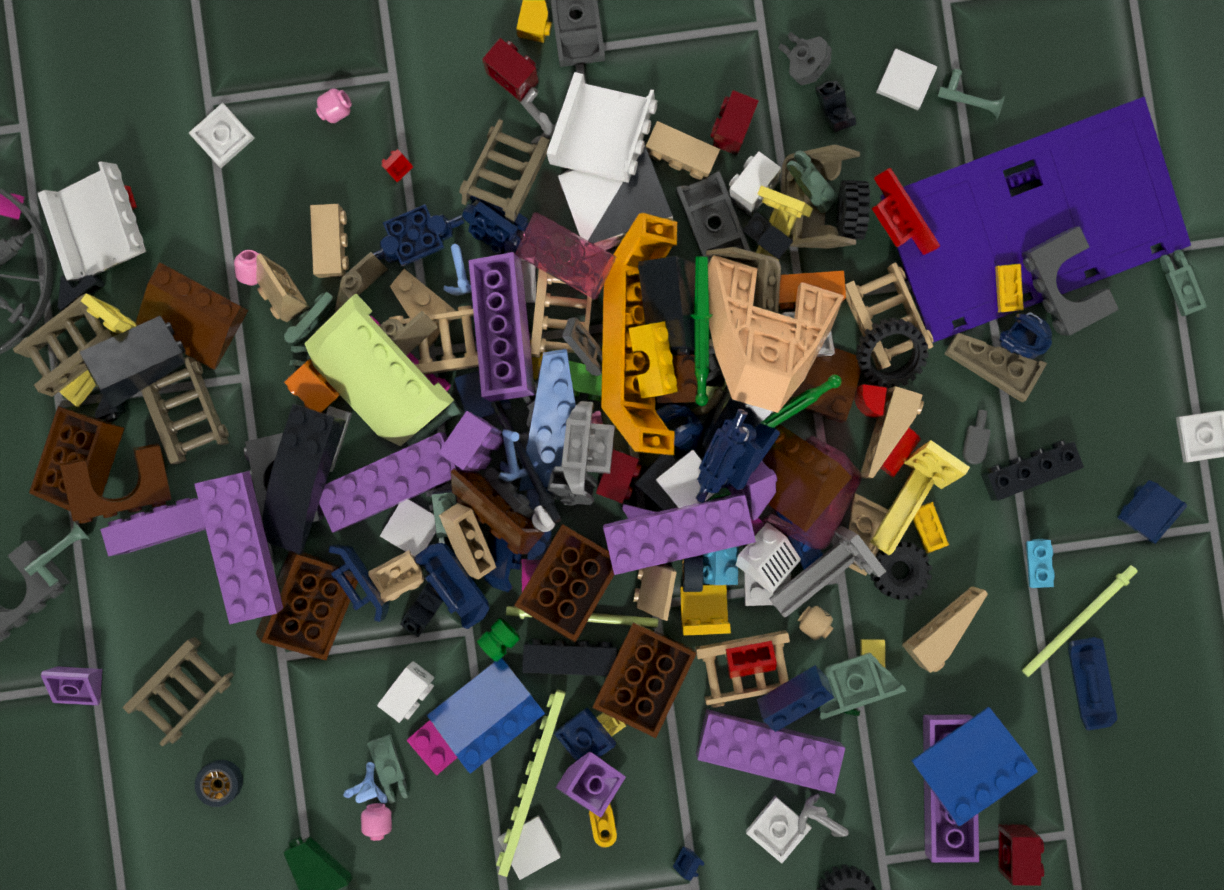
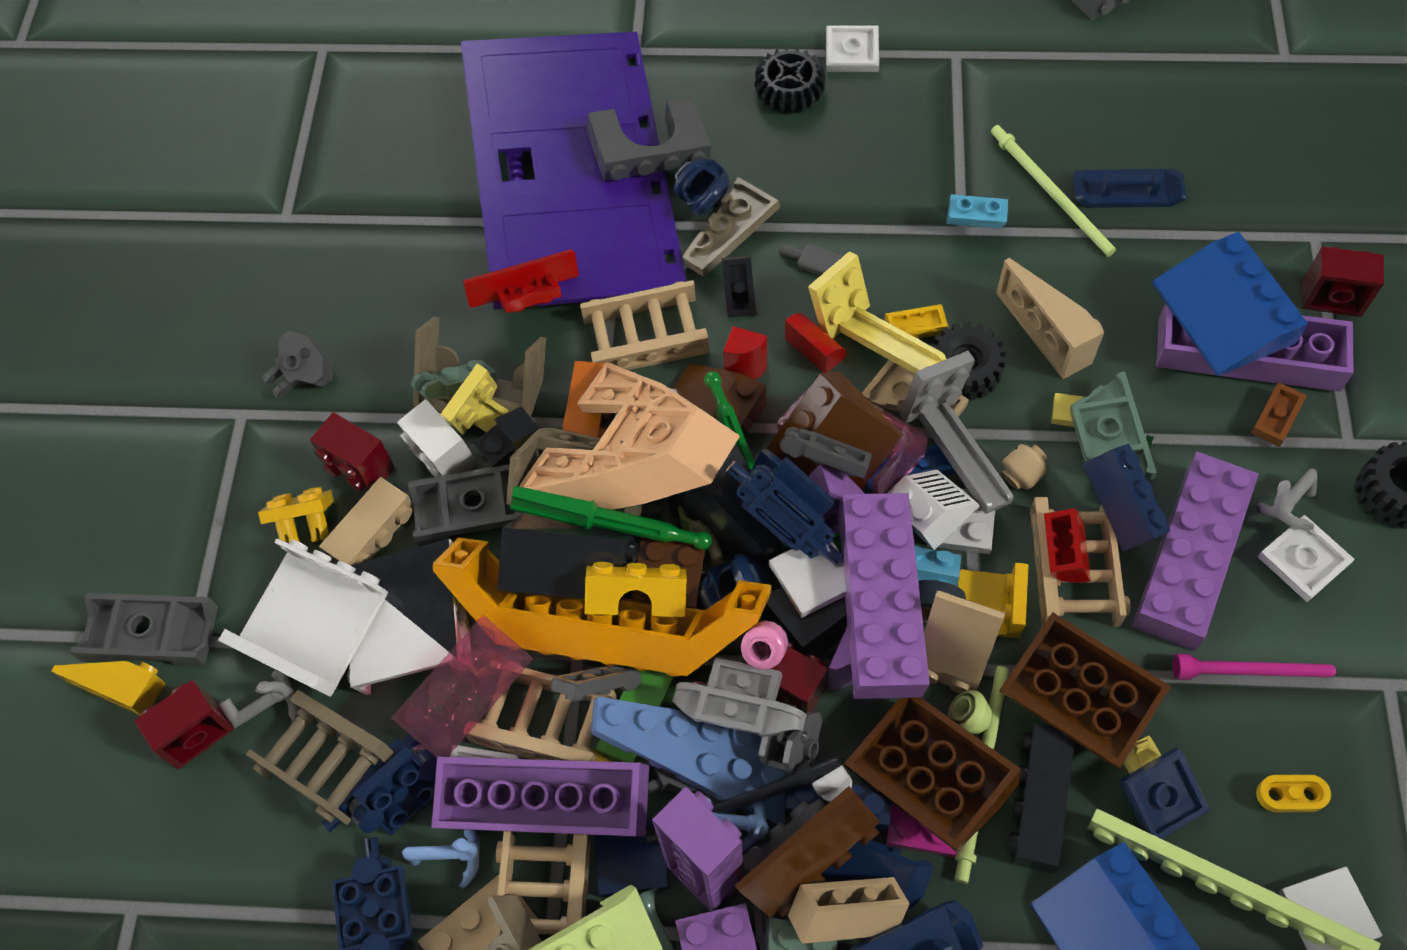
camera: 75 degrees left, 25 degrees down
(397, 165) = (262, 922): red tile -> none
(496, 641) = (1004, 897): green wheel -> none
(591, 783) = (1233, 798): medium lavender slope -> none
(618, 603) = (971, 711): none -> yellowish green cone
(624, 459) = (763, 655): none -> bright pink head
(680, 749) = (1187, 667): none -> dark pink piece
(684, 91) = (309, 504): none -> yellow plate
(687, 864) = (1355, 684): dark blue tile -> none
(784, 477) = (826, 451): none -> dark grey hinge
(834, 106) = (367, 348): black slope -> none
(853, 209) = (500, 335): black tyre -> none
(895, 808) = (1278, 414): none -> dark orange plate
(899, 412) = (789, 341): tan slope -> none
(905, 372) = (672, 341): black tyre -> none
(906, 79) = (364, 268): white tile -> none
(937, 383) = (738, 286): none -> black slope
(951, 94) = (395, 227): sand green piece -> none
(1009, 288) = (640, 197): yellow plate -> none
(1032, 470) = (863, 208): black brick -> none
(1152, 511) = (929, 103): dark blue slope -> none
(1170, 396) = (790, 72): none -> black gear
(1183, 283) = (676, 42): sand green hinge -> none

